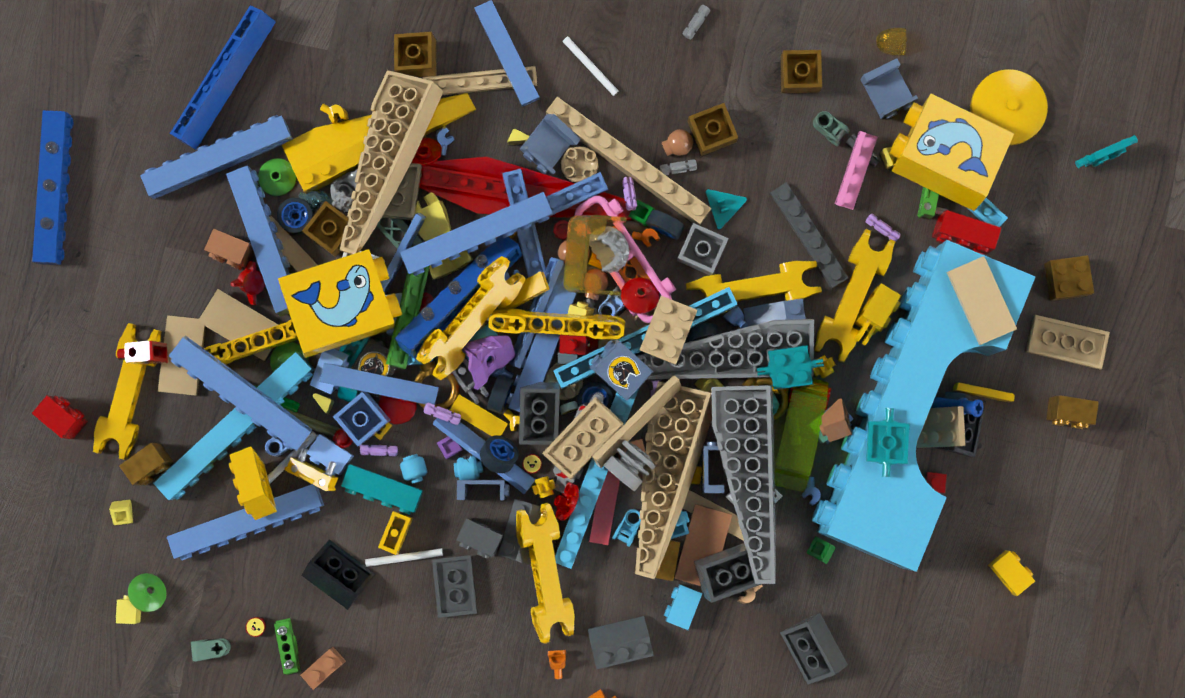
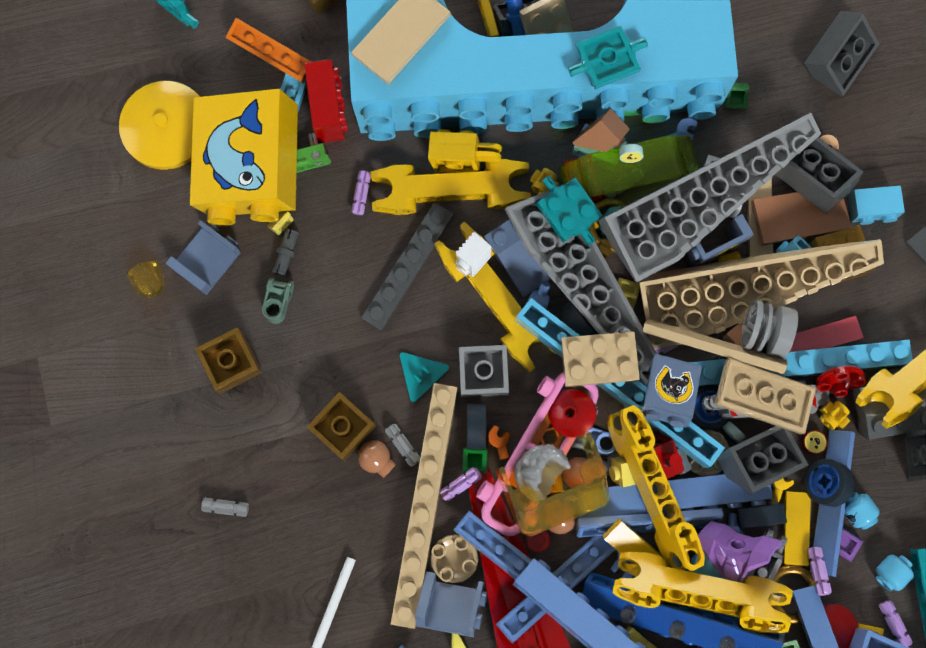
camera: 110 degrees left, 5 degrees down
(462, 487) = (870, 484): sand blue panel -> none
(627, 528) = (828, 303): medium azure piece -> none
(790, 279) = (472, 255): none -> white brick
(810, 433) = (631, 153): none -> tile
(856, 170) = (312, 249): bright pink fence -> none
(936, 481) = (602, 13): red plate -> none
(1030, 212) = (268, 49): none -> orange fence

